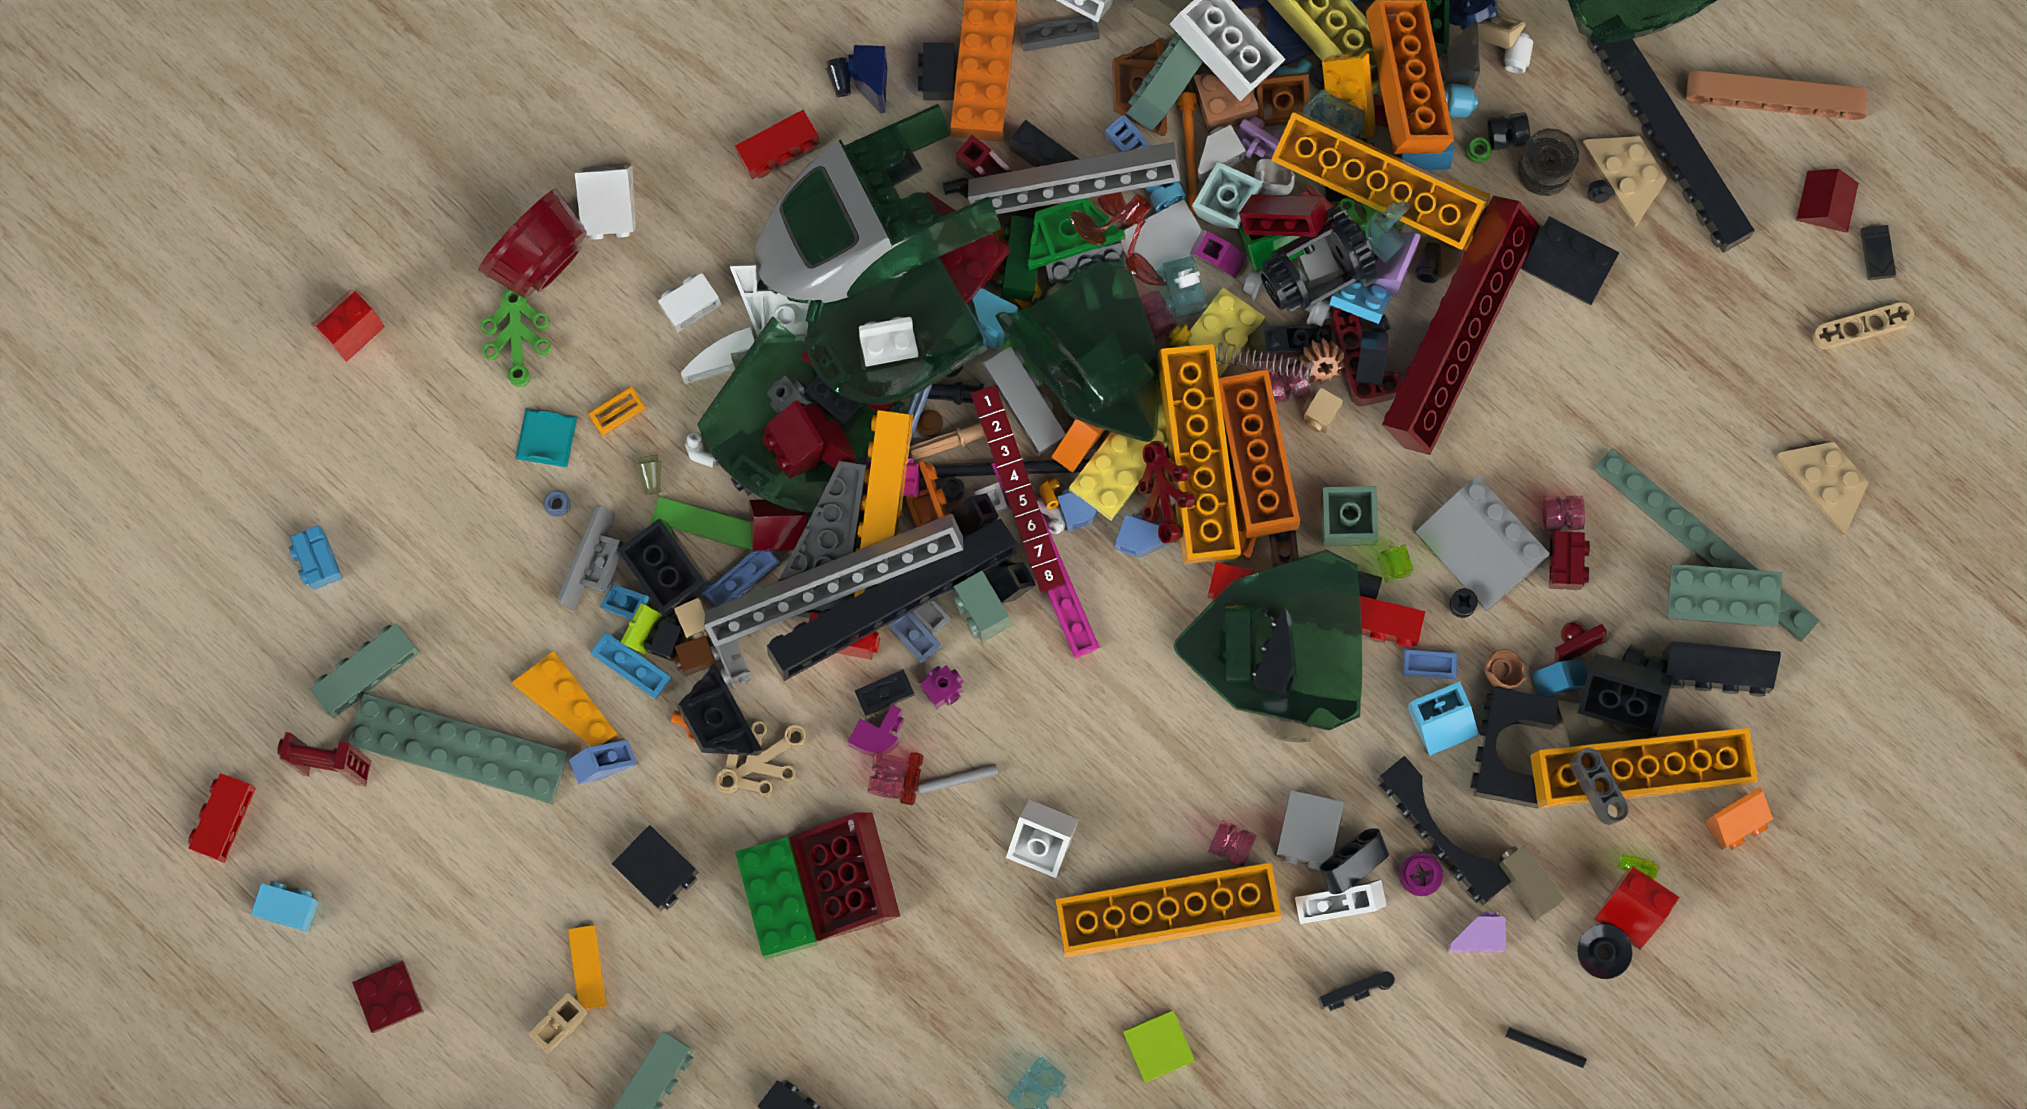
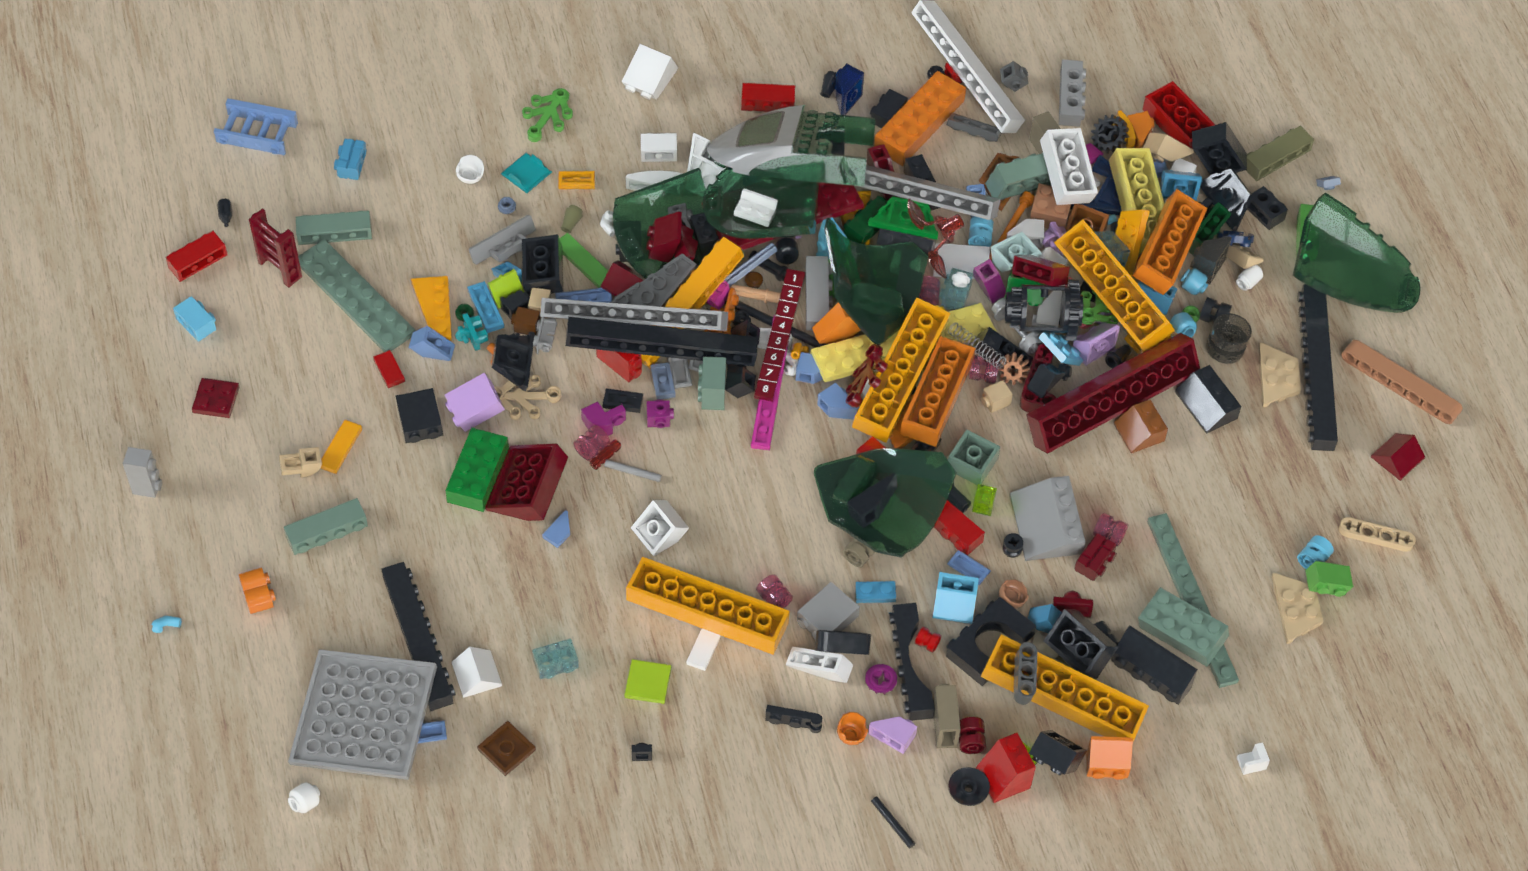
camera: 25 degrees right, 20 degrees down
(141, 567) = (258, 112): none -> medium blue fence
(209, 730) = (224, 211): none -> black piece
(348, 324) = (458, 55): red slope -> none
(477, 482) = (470, 169): none -> white hair
(536, 247) = (589, 64): dark red piece -> none
(571, 824) = (389, 369): none -> red tile
(604, 683) = (464, 308): none -> dark green plate
(630, 703) = (469, 331): none -> teal hips
(711, 811) = (474, 402): none -> lavender brick
(925, 915) = (558, 531): none -> medium blue tile
(1194, 964) = (703, 649): none -> white tile
(1343, 763) = (875, 592): none -> dark azure plate
(1382, 235) = (1095, 310): clear light blue brick -> none
(1431, 963) = (852, 728): none -> orange hair
(1443, 791) = (927, 639): none -> red wheel
(1481, 173) = (1184, 324): none -> medium azure head
(1515, 348) = (1141, 427): none -> dark orange slope
(1566, 875) = (972, 735): none -> dark red wheel
(1599, 191) = (1252, 374): black plate -> none
(1686, 854) = (1057, 752): none -> black brick
(1812, 399) = (1316, 550): none -> medium azure wheel
(1848, 425) = (1329, 578): none -> bright green brick
(1878, 252) = (1413, 500): pearl dark grey tile -> none
(1893, 714) = (1255, 760): none -> white panel

